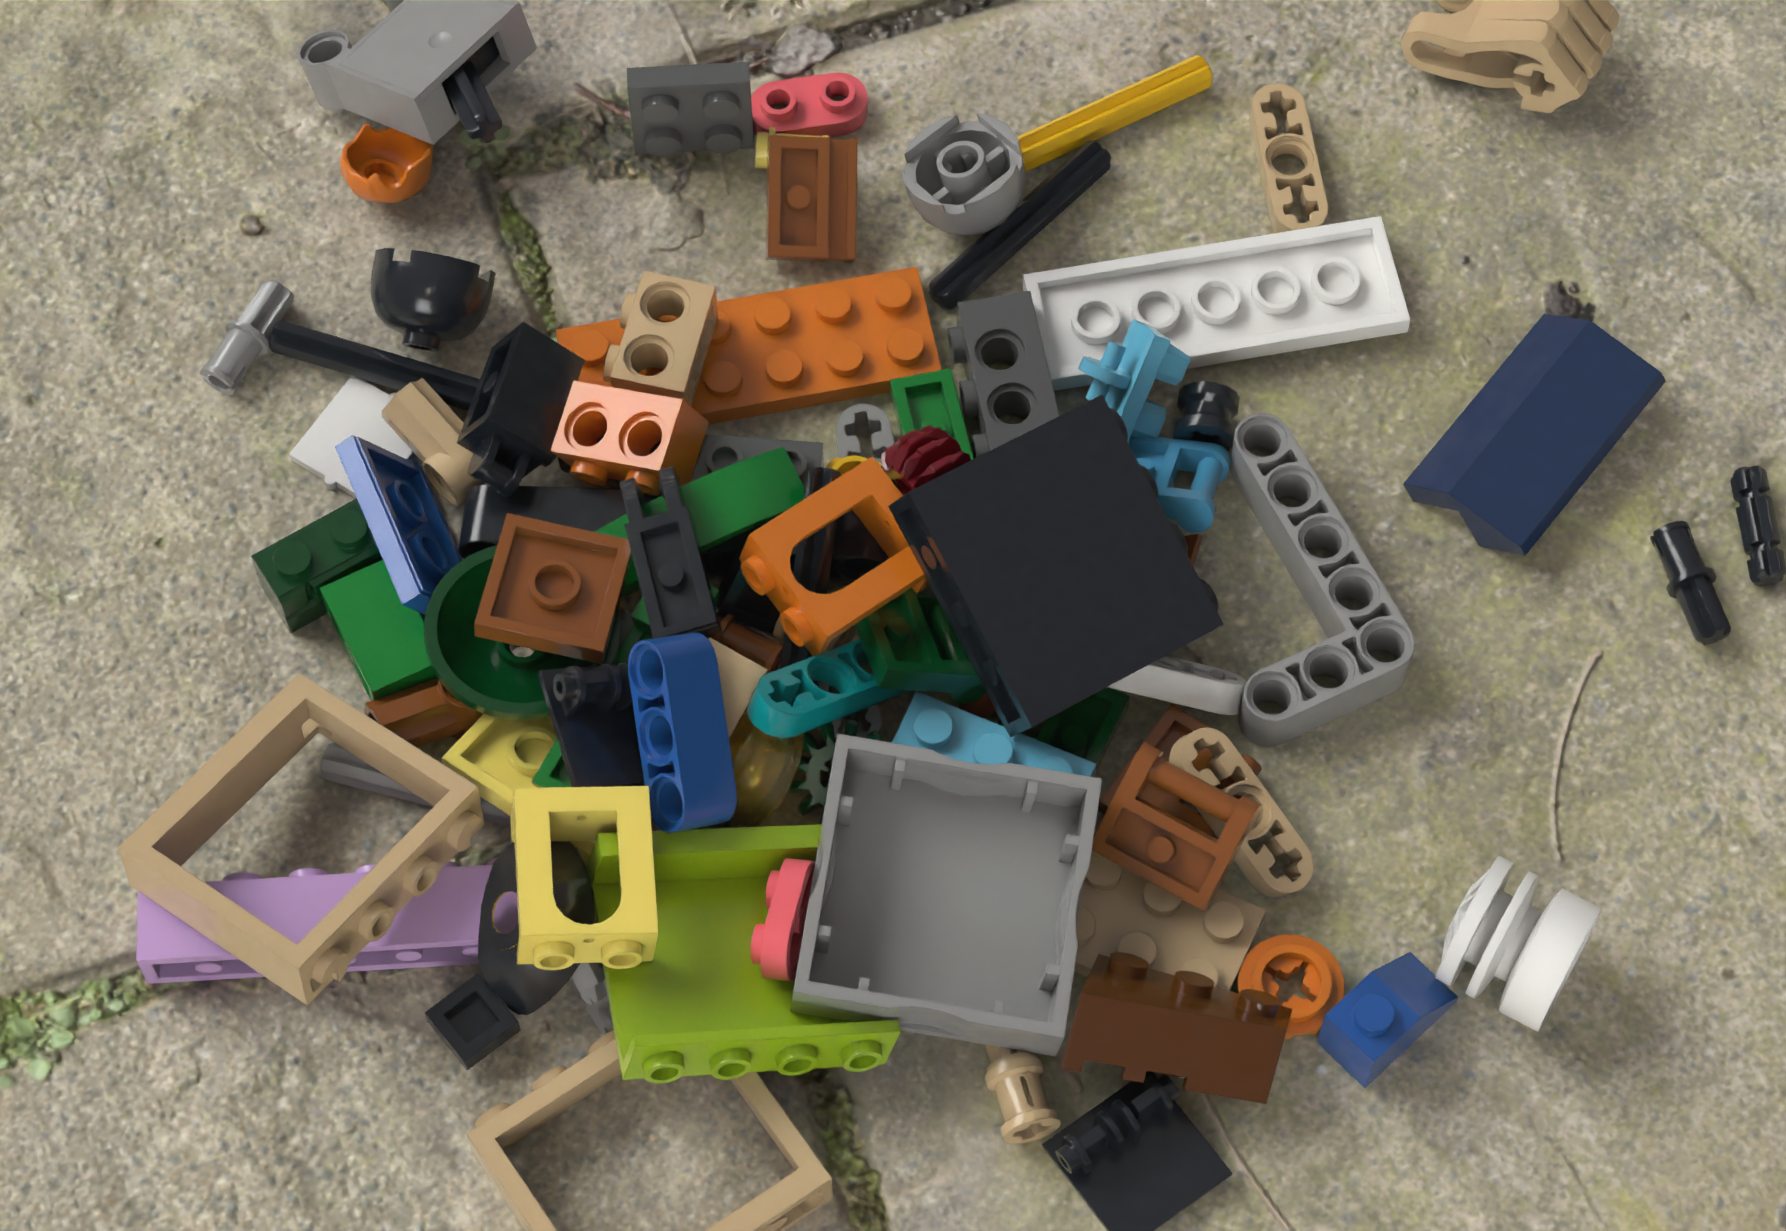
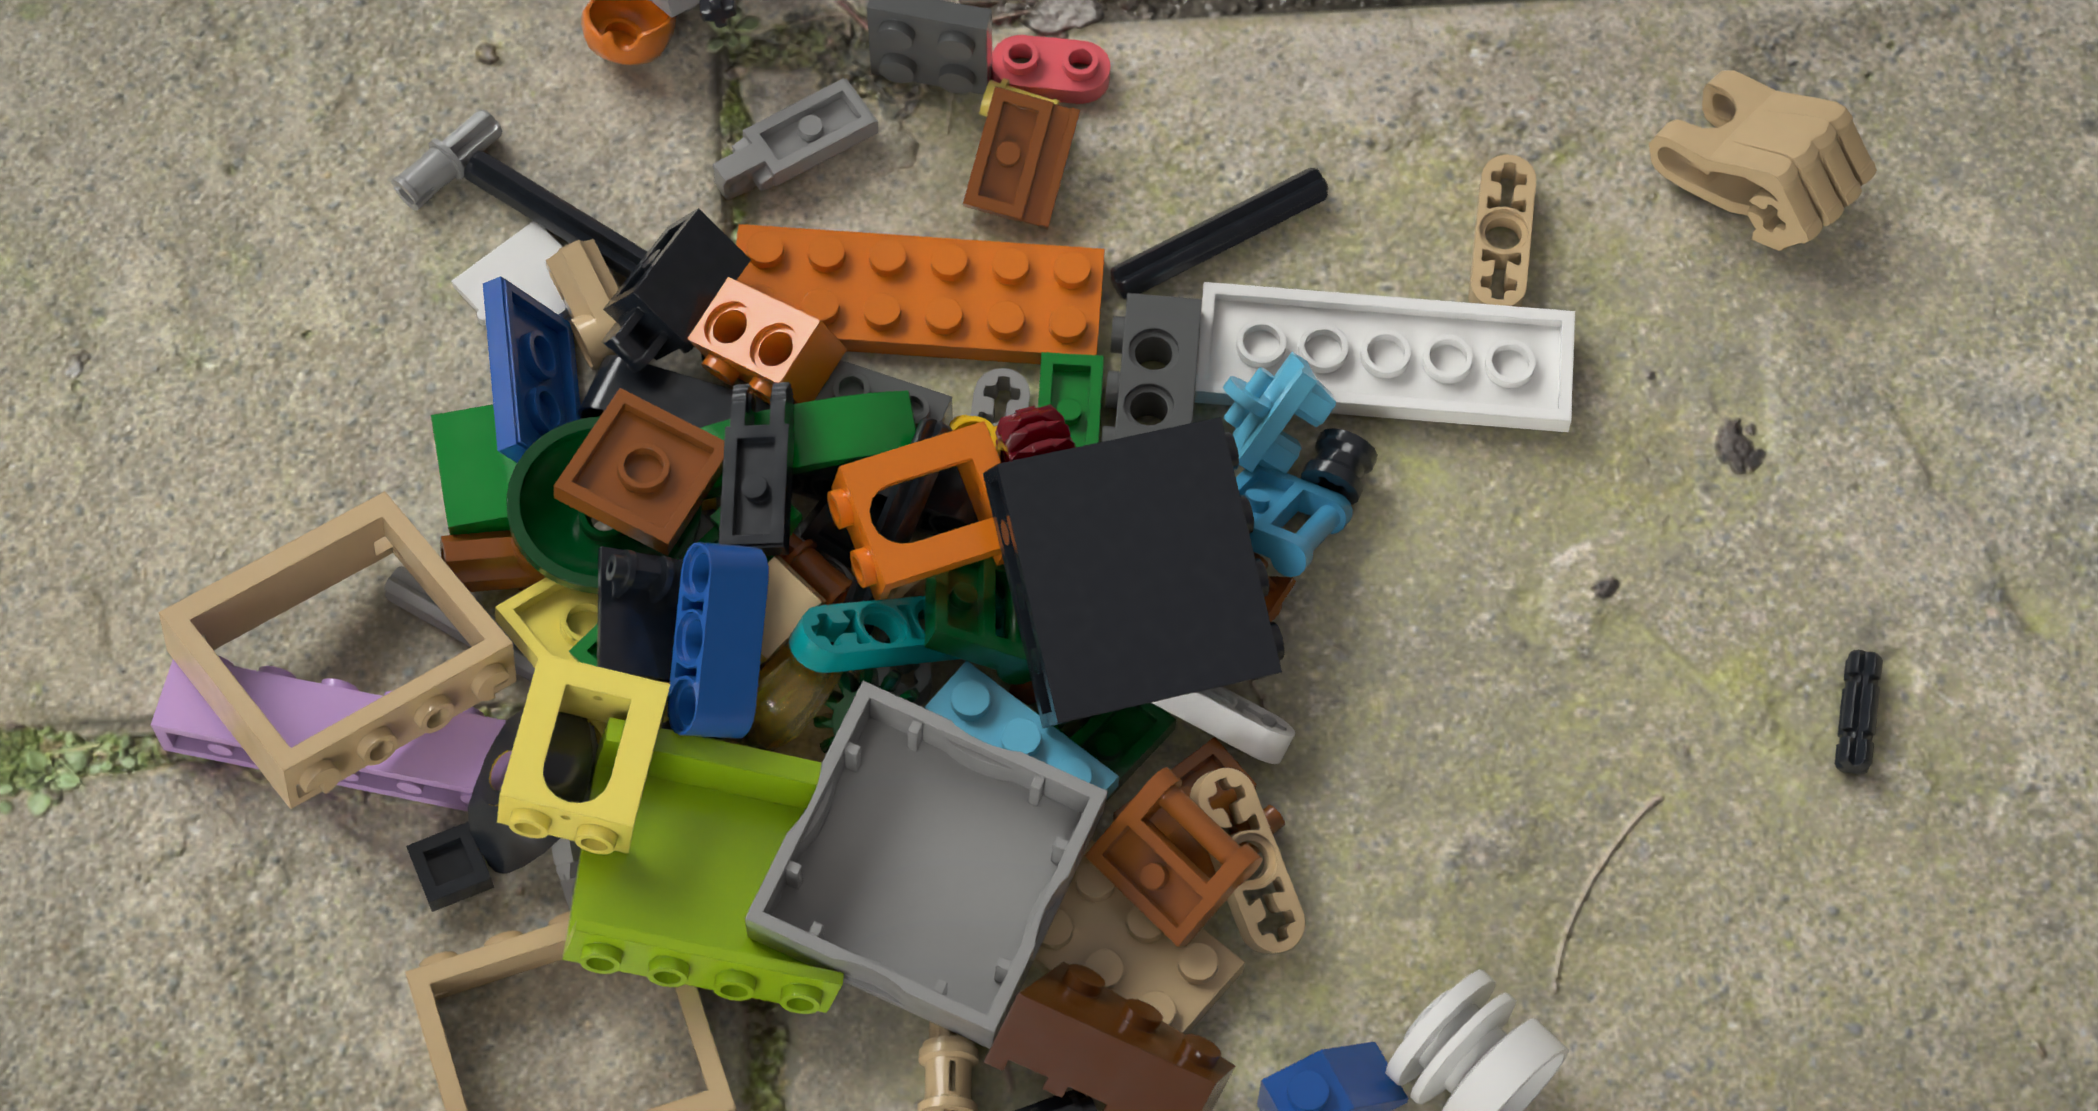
camera: 15 degrees right, 0 degrees up
(312, 558) = (433, 386): dark green brick -> none
(429, 297) = (625, 163): black cylinder -> none
(585, 235) = (795, 140): none -> light grey hinge
(672, 346) = (841, 268): tan brick -> none
(779, 940) = (750, 862): coral plate -> none
(965, 174) = (1174, 170): light grey cylinder -> none
(1115, 111) = (1336, 146): yellow axle -> none
(1285, 956) = (1250, 1014): orange gear -> none
(1322, 584) = (1404, 658): light grey beam -> none
(1535, 432) = (1662, 563): dark blue slope -> none
(1691, 582) = (1771, 751): black axle -> none

